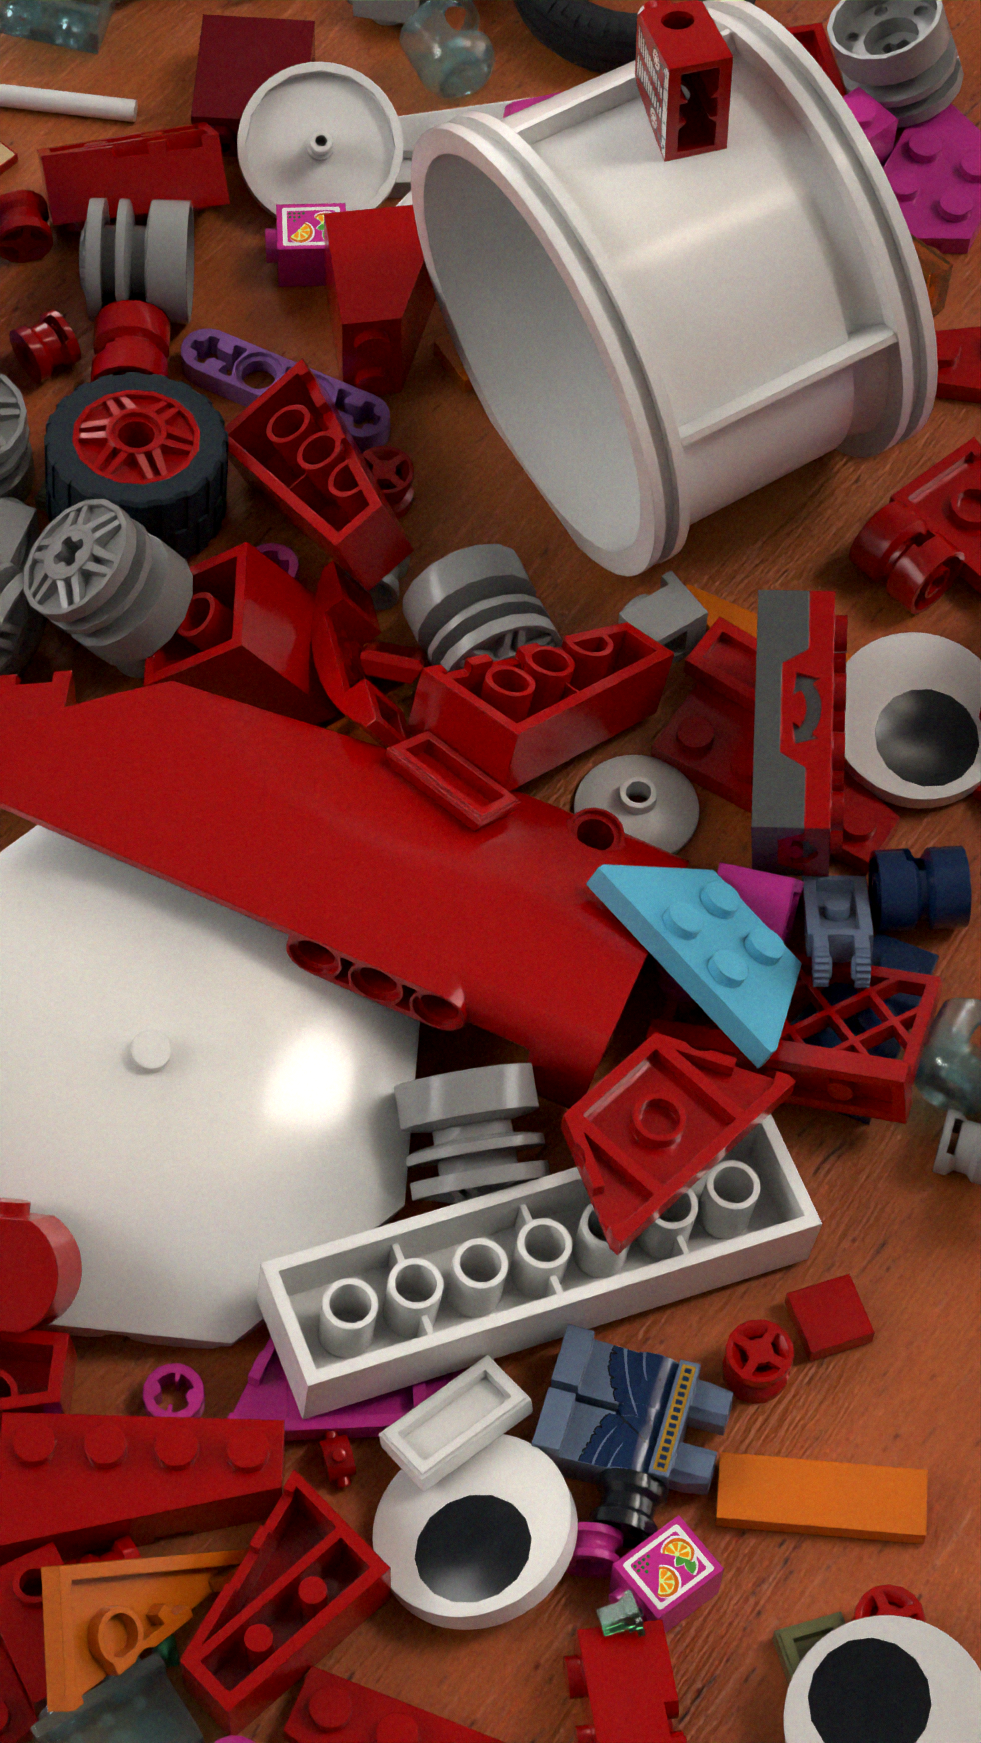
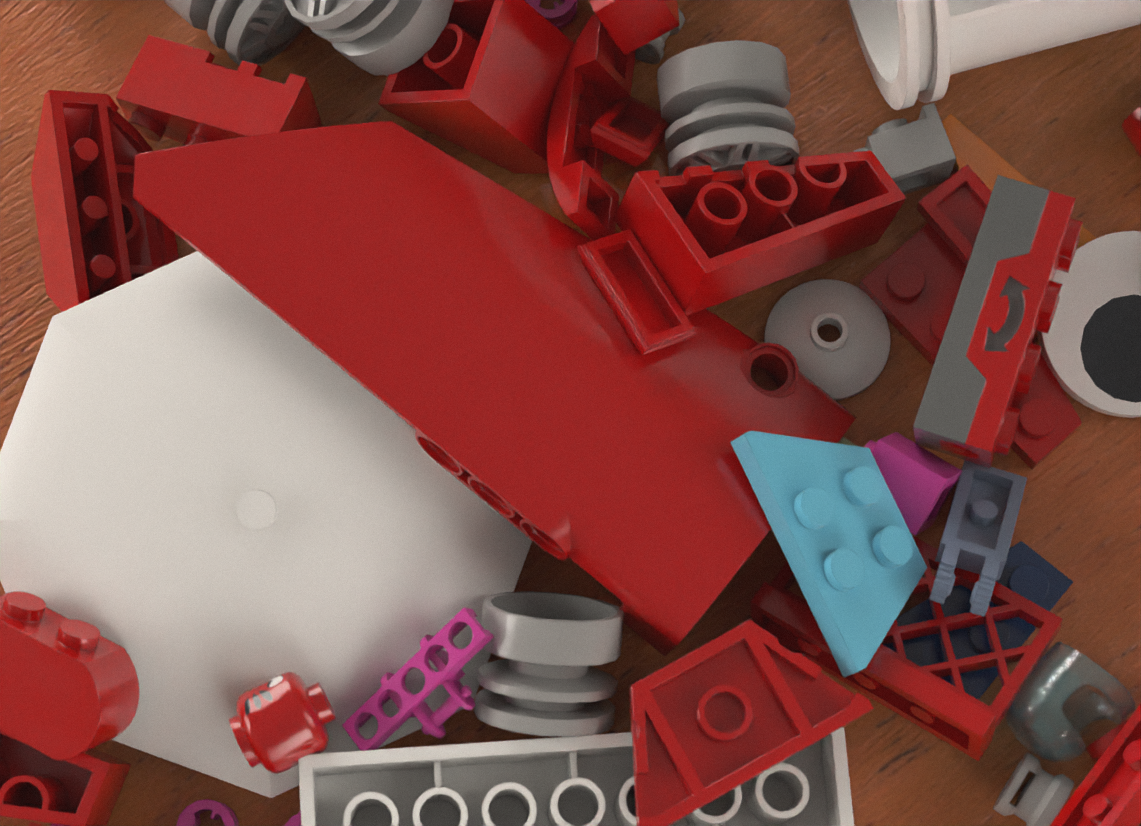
camera: 25 degrees right, 15 degrees up
(232, 1242) = (282, 722): none -> red head
(377, 1157) = (410, 704): none -> dark pink piece
(919, 889) = (1075, 509): dark blue wheel -> none

